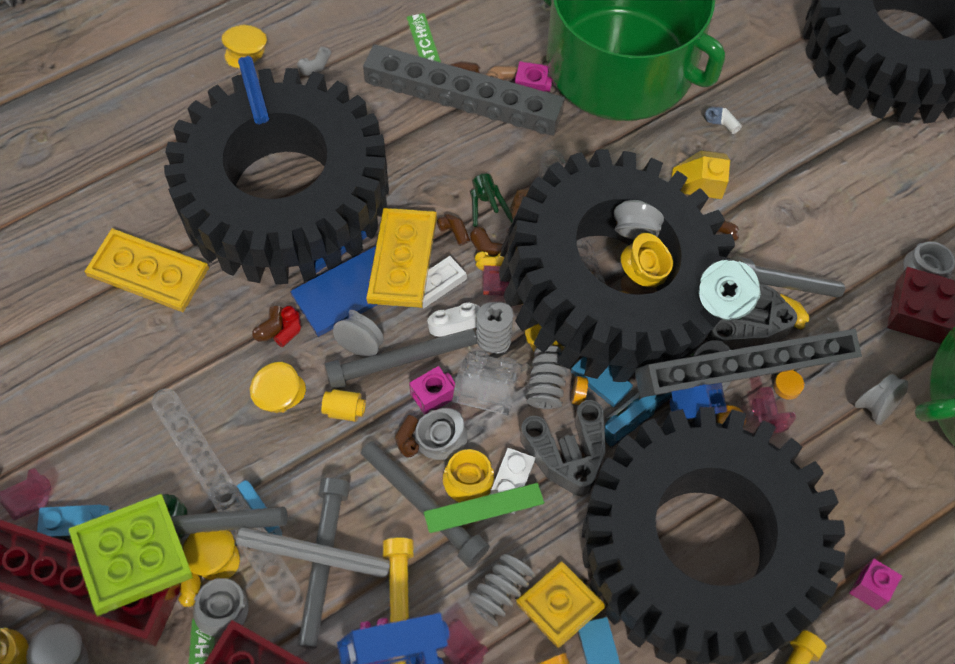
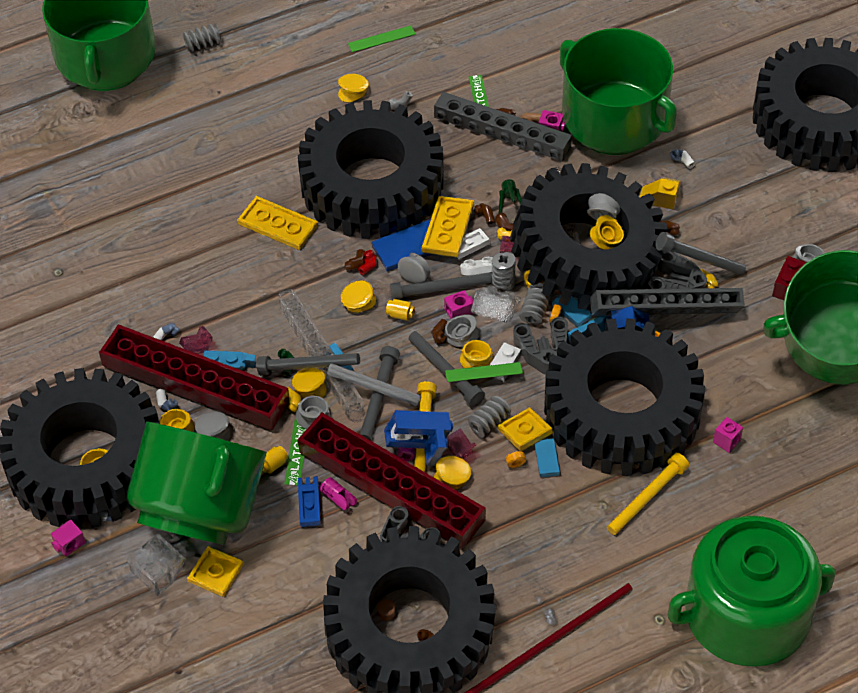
camera: 10 degrees right, 10 degrees down
(129, 554) = (263, 370): lime plate -> none
(253, 90) = (359, 112): blue axle -> none
(732, 273) = (657, 260): light aqua plate -> none
(766, 409) = (678, 334): clear pink bracket -> none
(788, 384) = (696, 323): light orange tile -> none
(883, 398) = (753, 333): light grey piece -> none

